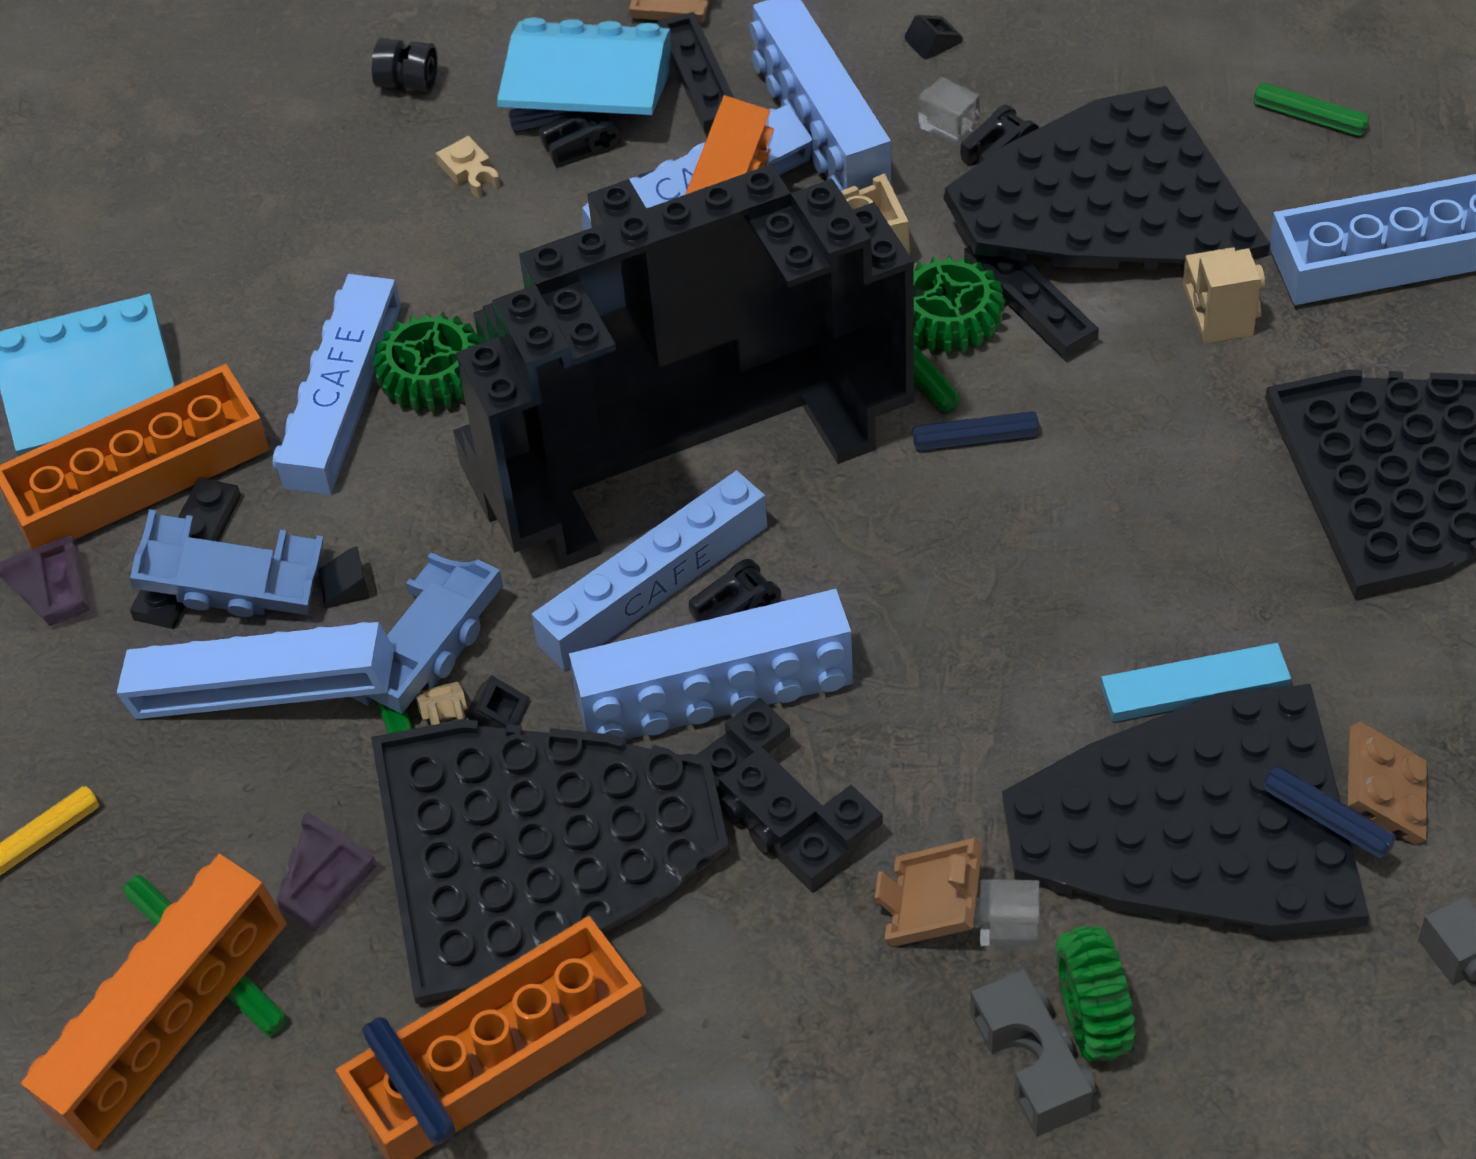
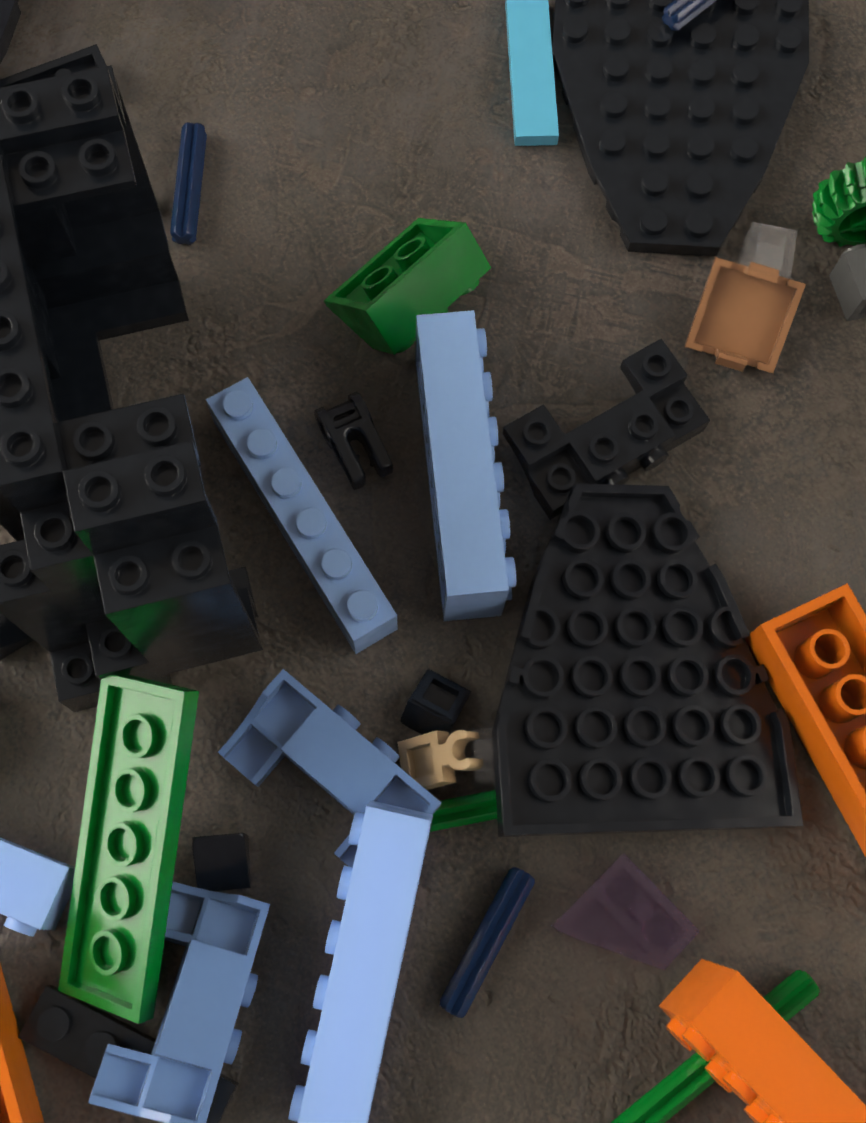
camera: 90 degrees left, 20 degrees up
(294, 774) = (487, 942): none -> dark blue axle
(341, 491) = (128, 845): none -> green plate
(906, 613) = (409, 277): none -> green slope

